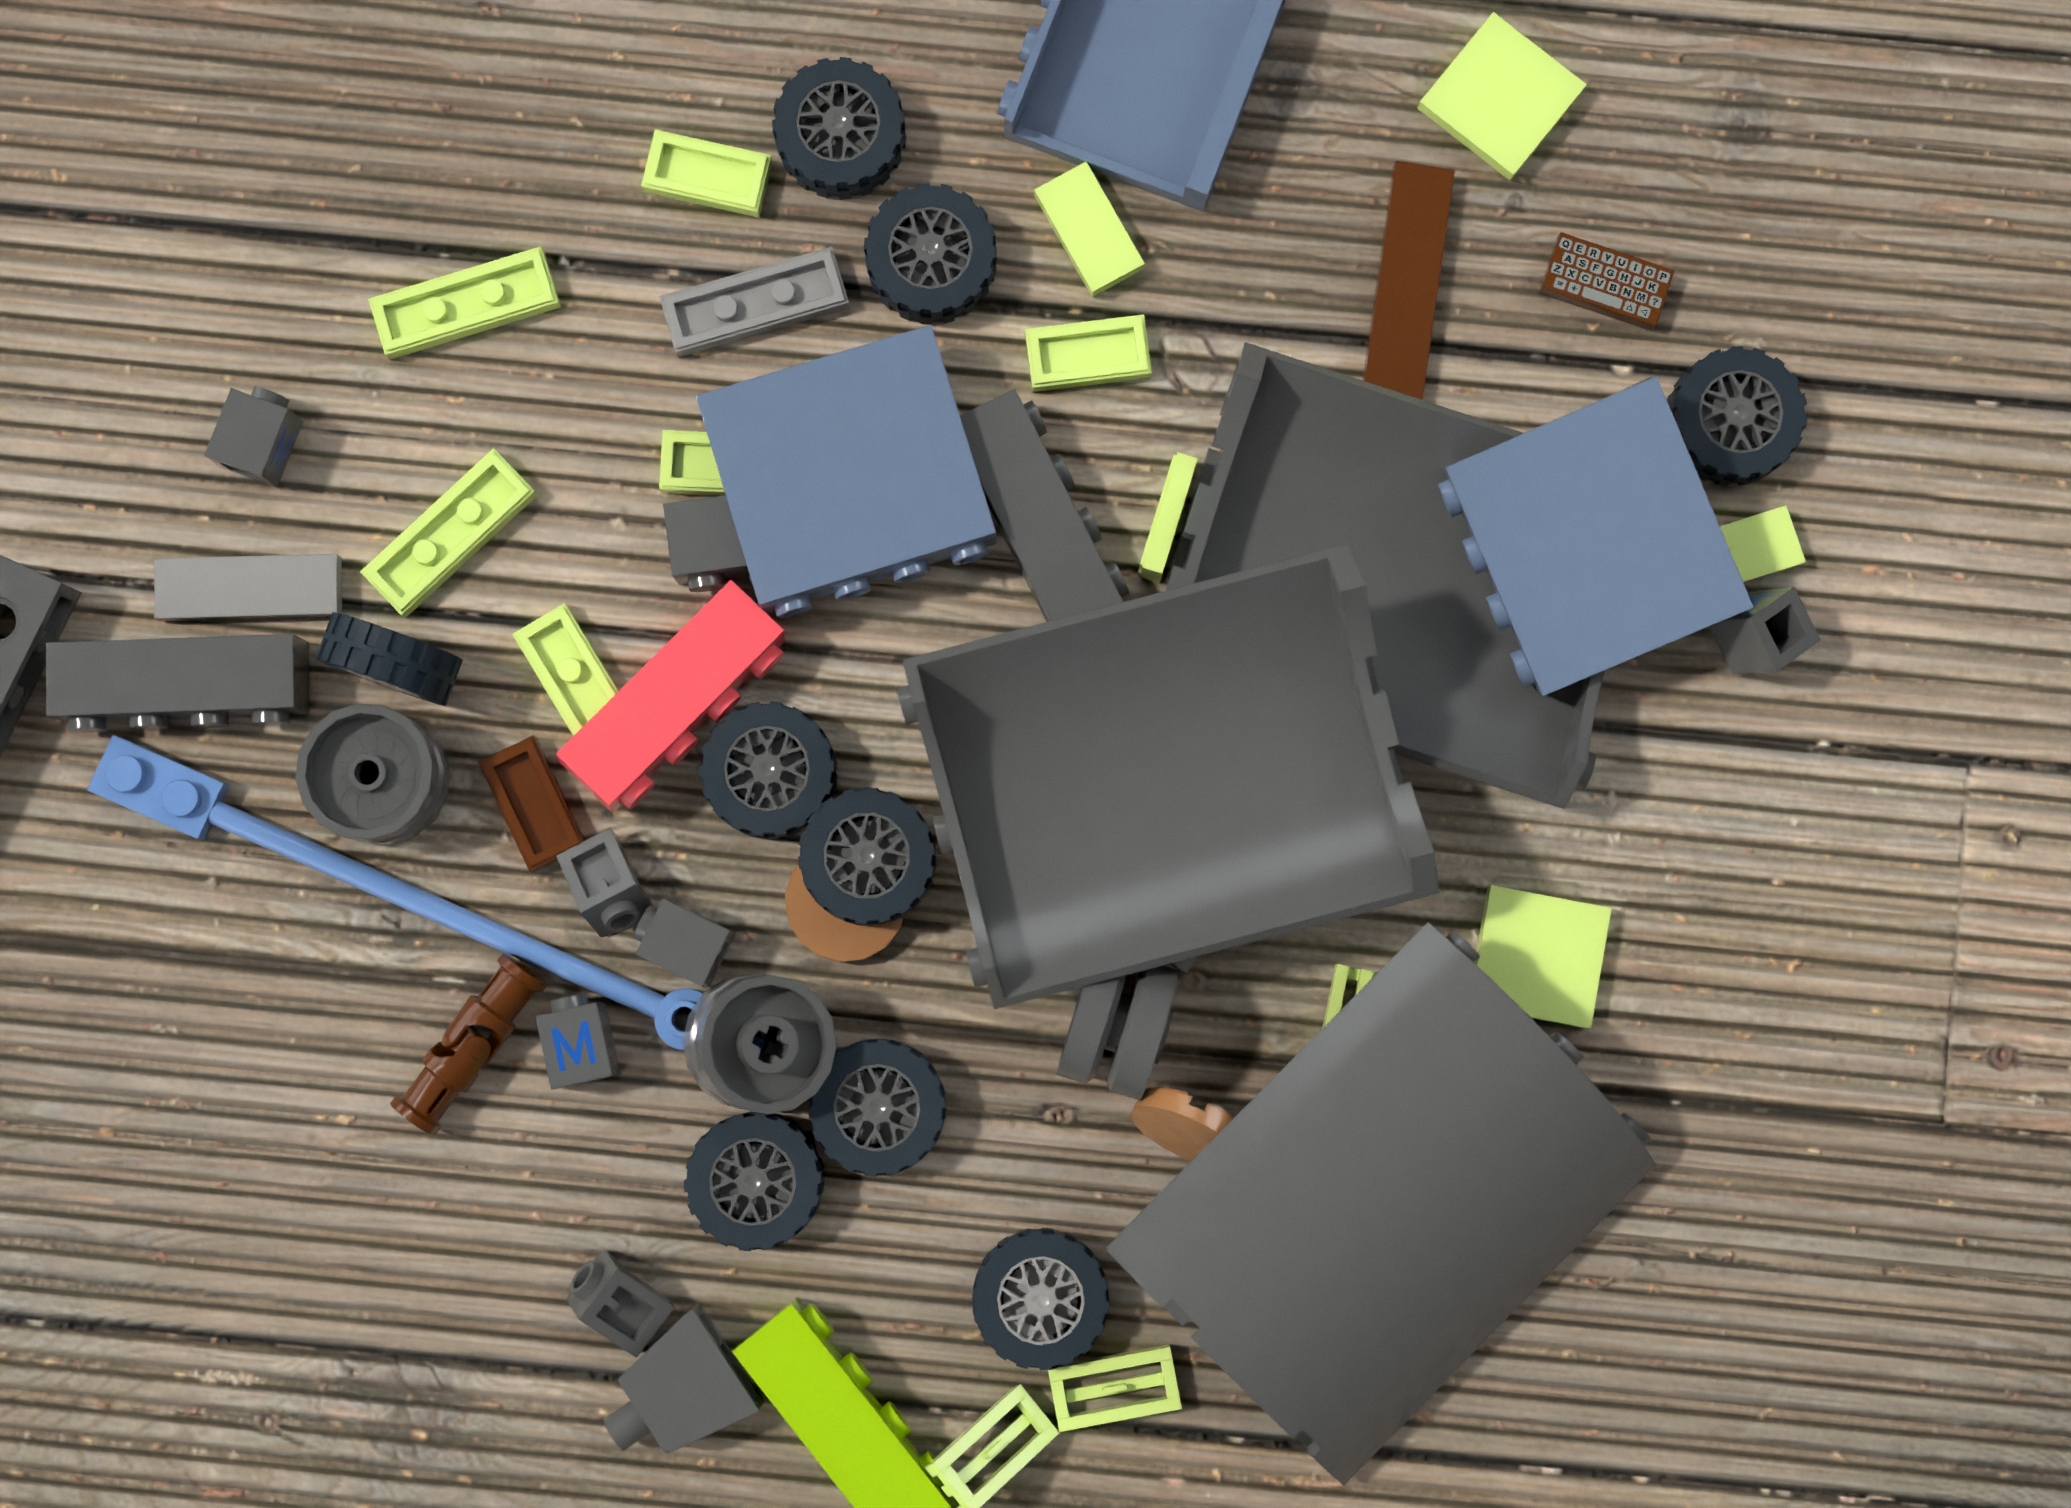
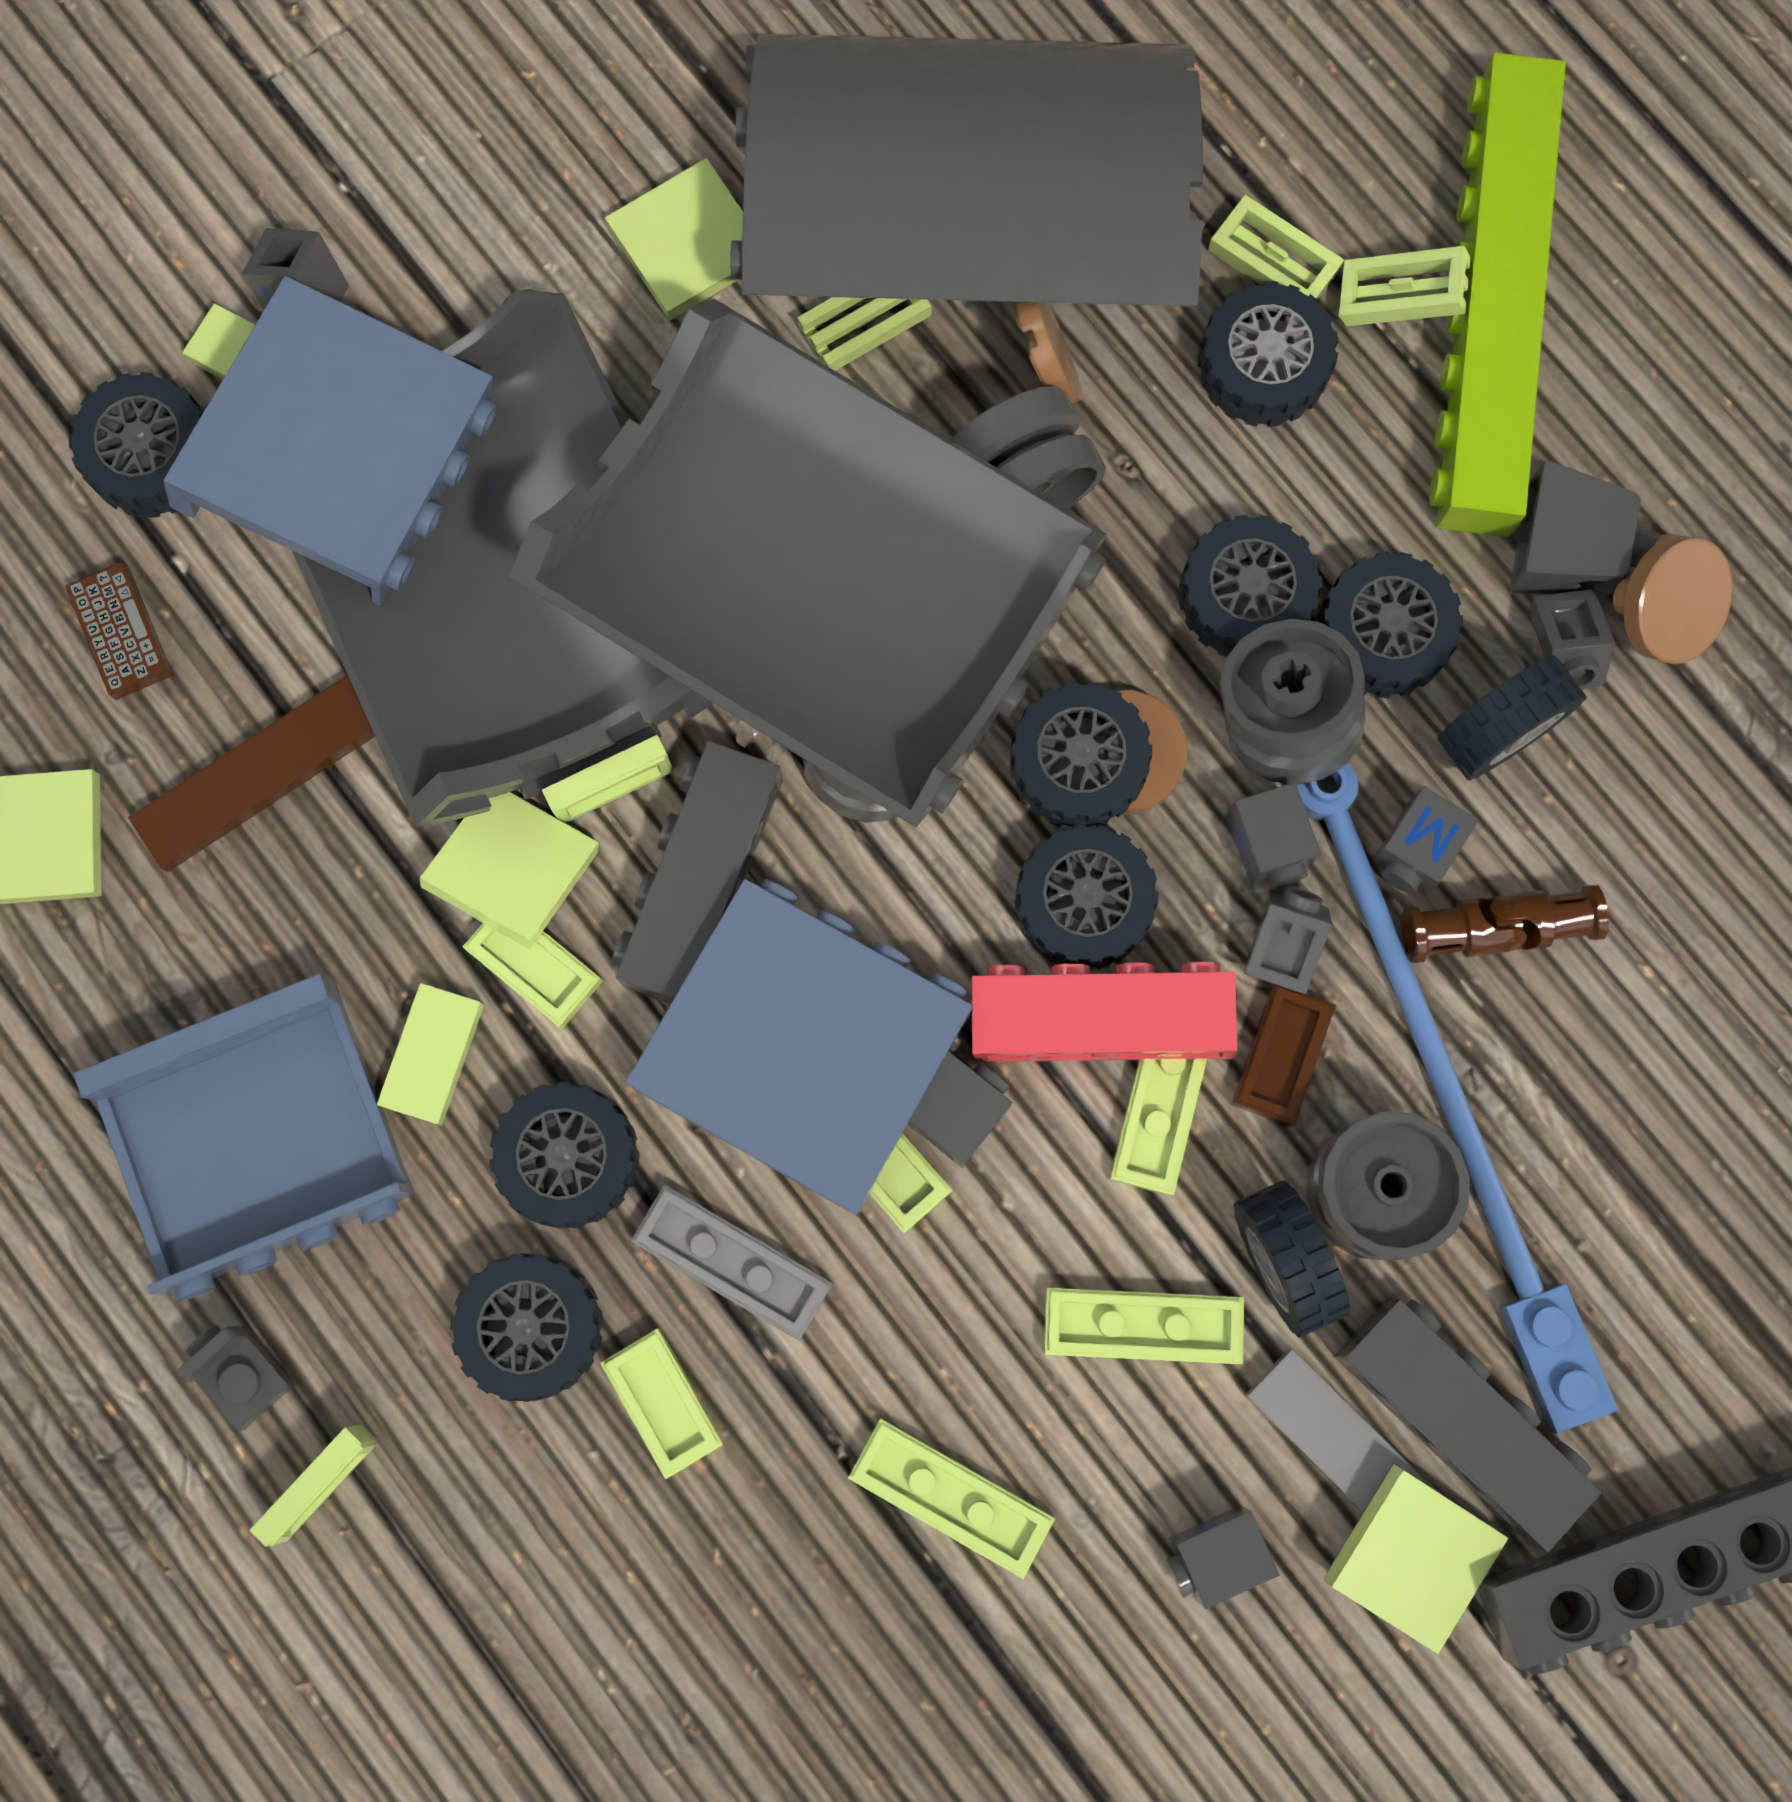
camera: 130 degrees left, 5 degrees down
(129, 560) = (1415, 1559): none -> yellowish green tile
(569, 1403) = (1676, 599): none -> medium nougat tile
(597, 1185) = (1511, 717): none -> black wheel
(1166, 394) = (510, 867): none -> yellowish green tile

